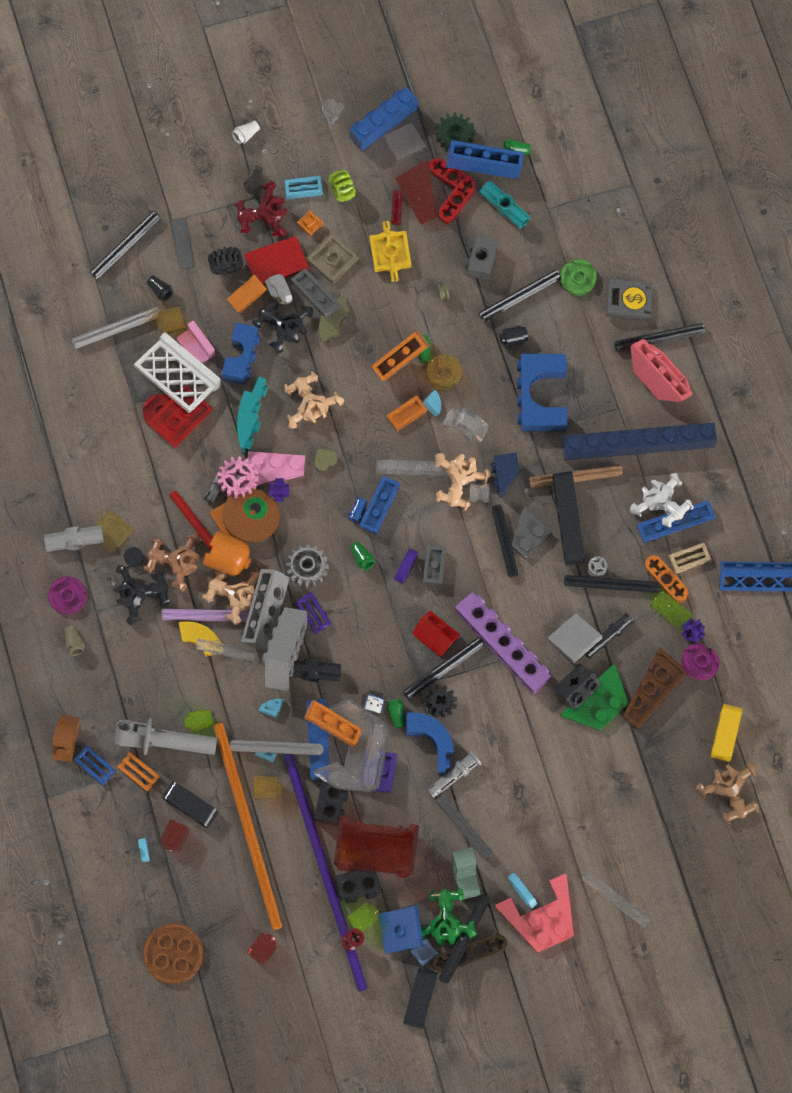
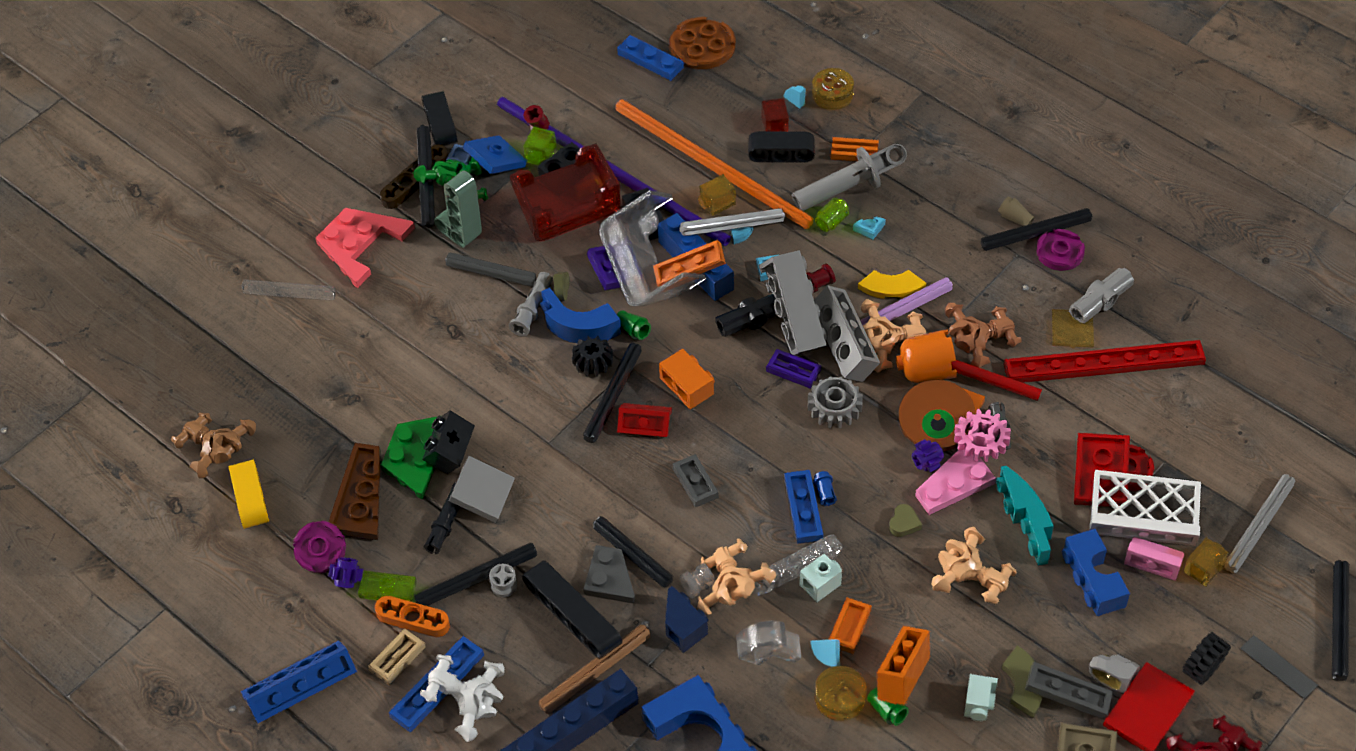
camera: 150 degrees right, 20 degrees down
(65, 737) = (949, 132): dark orange brick -> none
(70, 620) = (1036, 229): none -> black axle
(107, 776) = (902, 134): blue tile -> none
(112, 493) = (1105, 361): none -> red tile
(113, 837) = (832, 88): none -> clear yellow head
(133, 557) = (1026, 316): black tile -> none
(133, 593) = (993, 281): black piece -> none
(160, 288) = (1252, 591): black cone -> none
(178, 697) = (869, 227): none -> medium azure tile
(222, 963) = (650, 57): none -> blue plate
(225, 650) = (864, 275): clear pin -> none
(246, 294) = (1148, 644): orange tile -> none
(246, 670) = (821, 277): none -> dark red bush
(263, 948) = (619, 79): clear red brick -> none
(286, 325) = (1068, 632): black piece -> none
(362, 556) = (783, 445): green cone -> none
(367, 321) = (980, 697): none -> light aqua brick
(373, 702) = (663, 314): head -> none
(391, 640) = (687, 378): none -> orange brick
(403, 449) = (821, 577): none -> light aqua brick
(406, 566) = (726, 461): dark purple beam -> none
(424, 778) = (561, 285): none -> olive tile
(522, 891) = (392, 244): medium azure tile -> none
(532, 682) = (574, 441): medium lavender brick -> none

